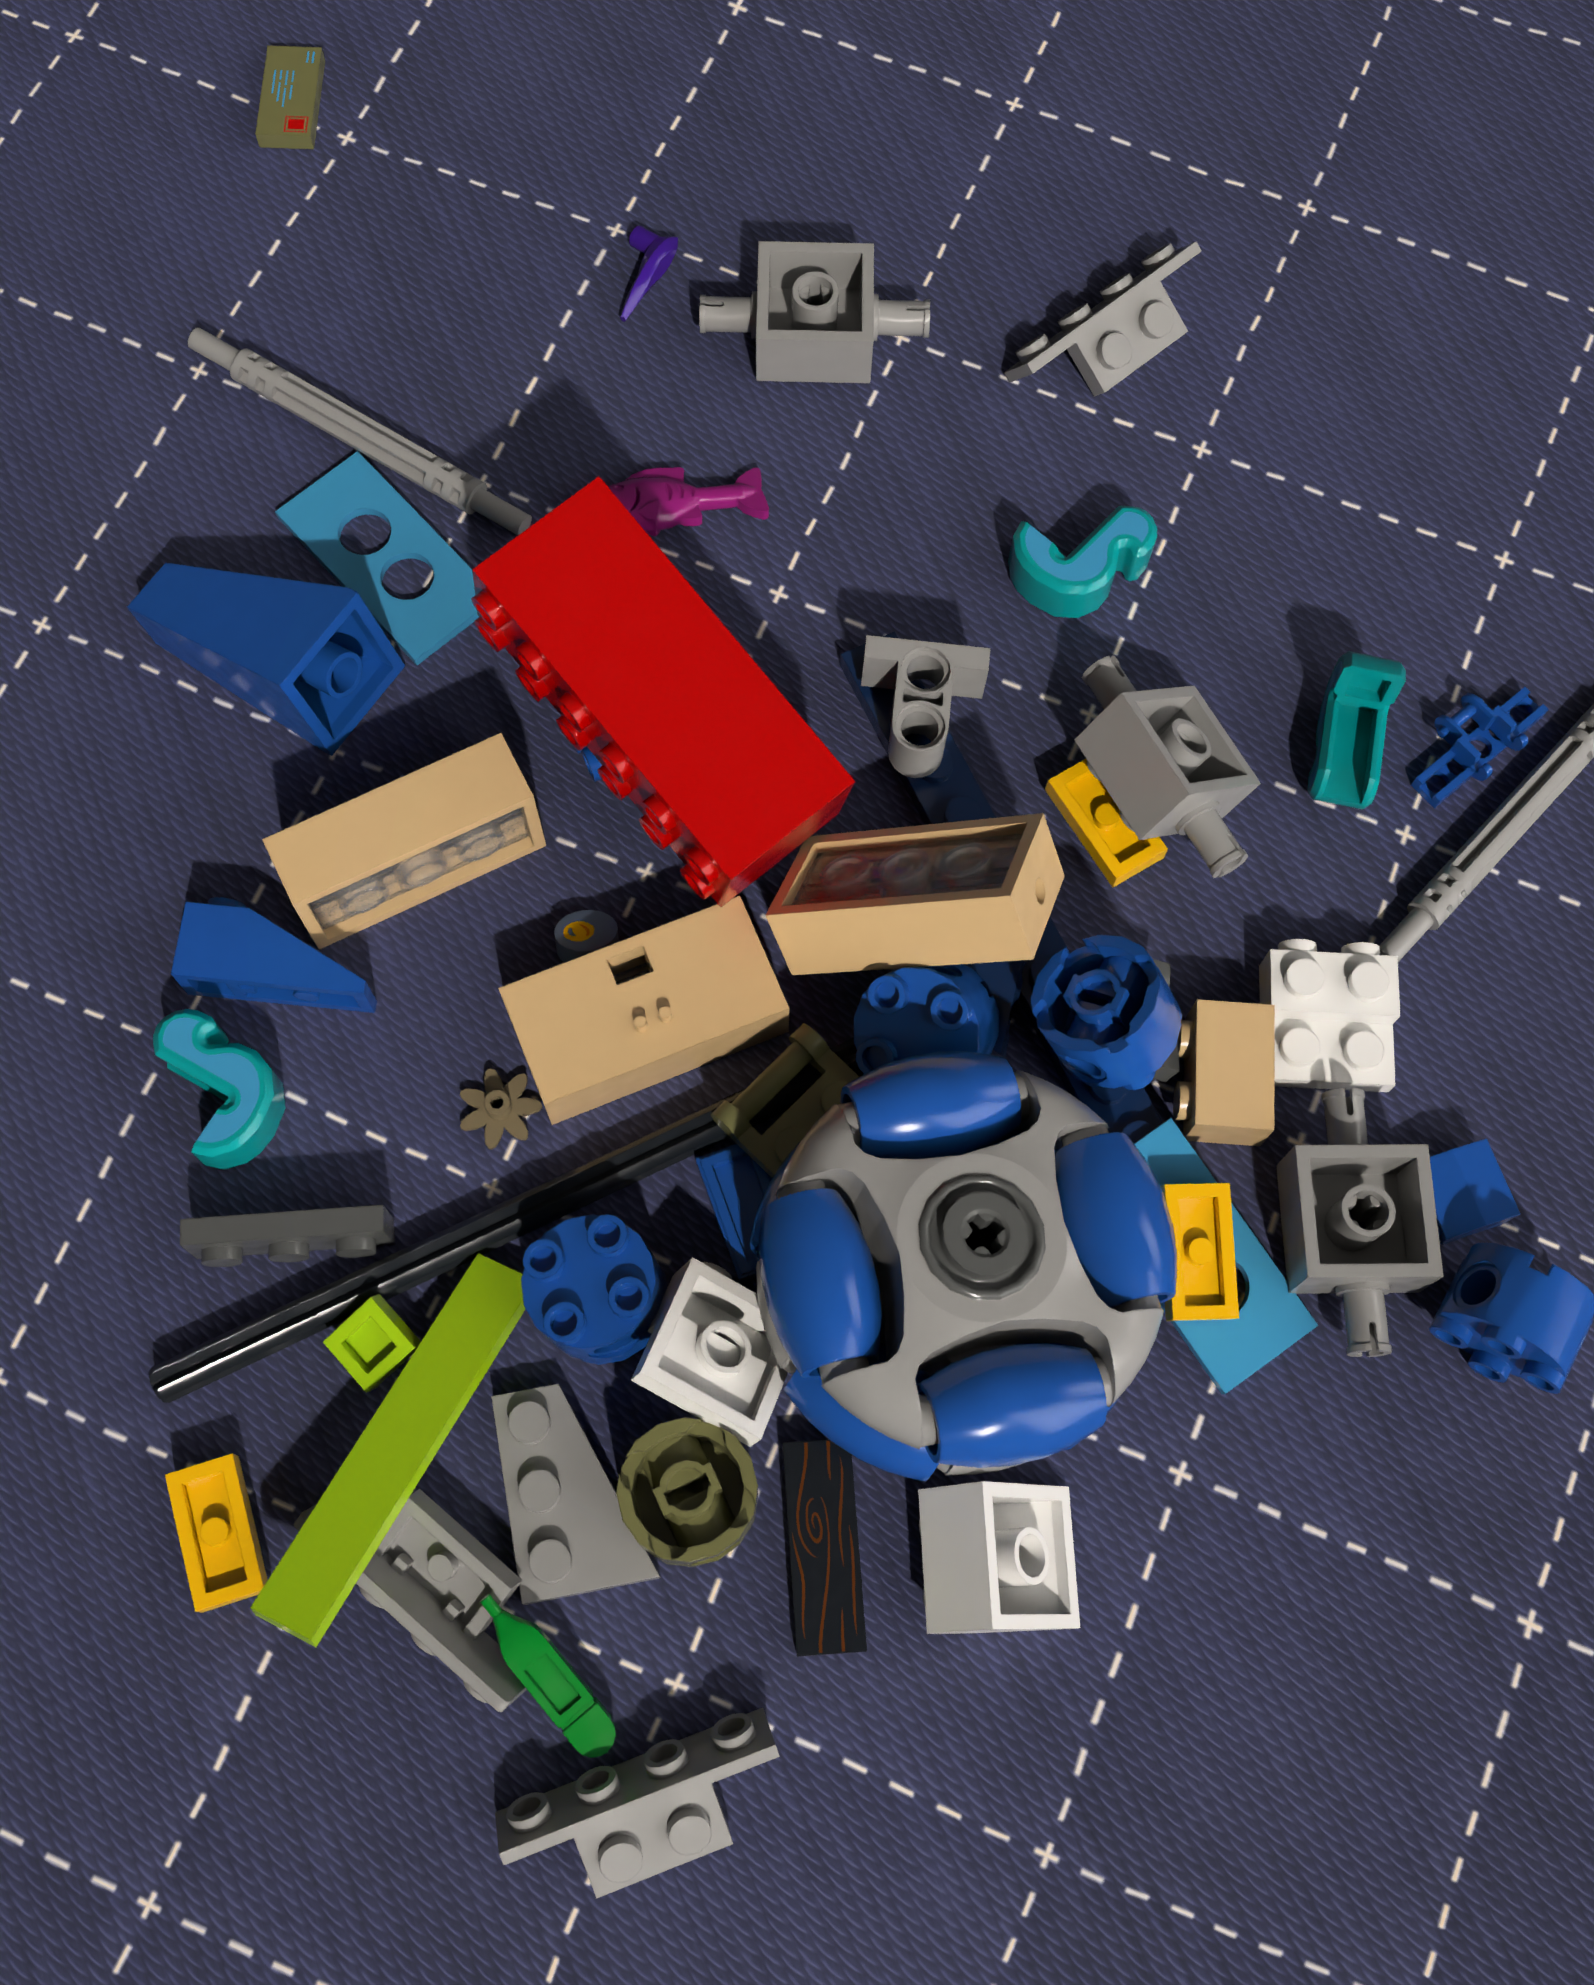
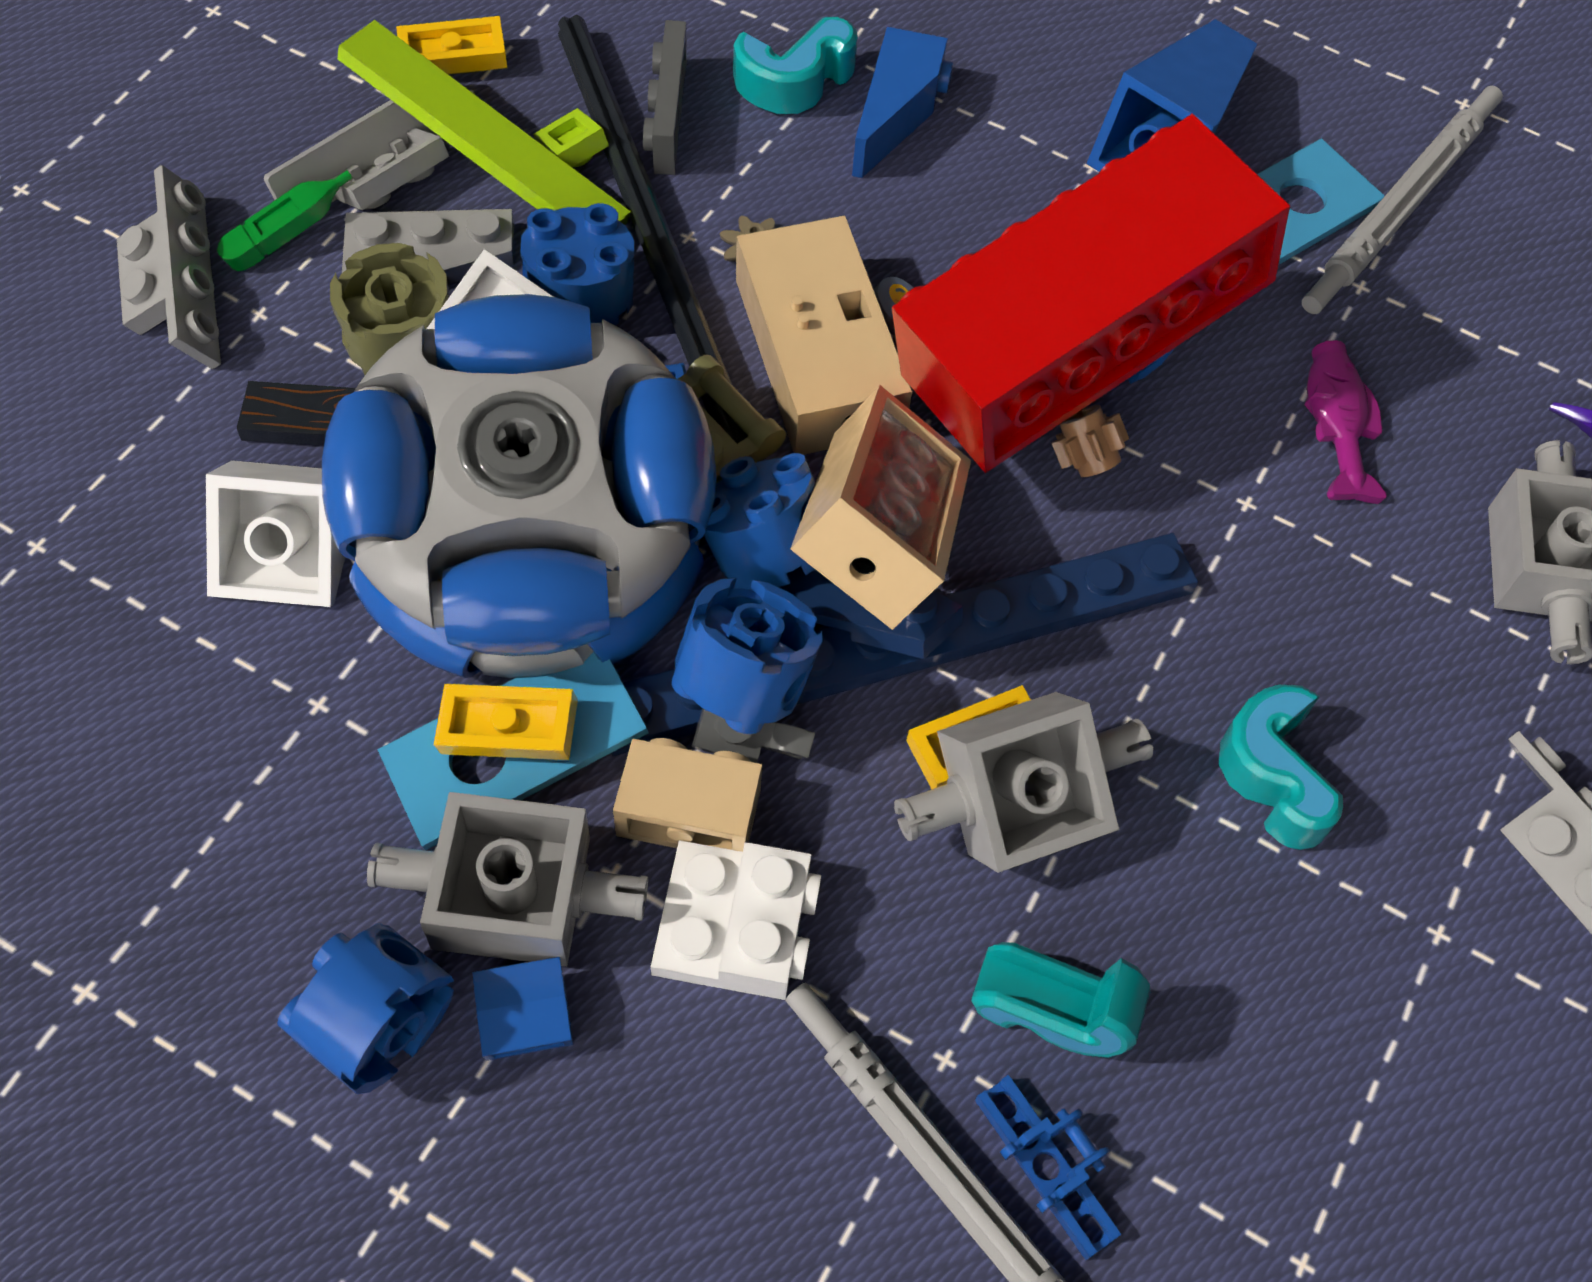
camera: 95 degrees right, 10 degrees down
(407, 841) = (978, 151): tan brick -> none
(954, 671) = (1095, 572): light grey tile -> none

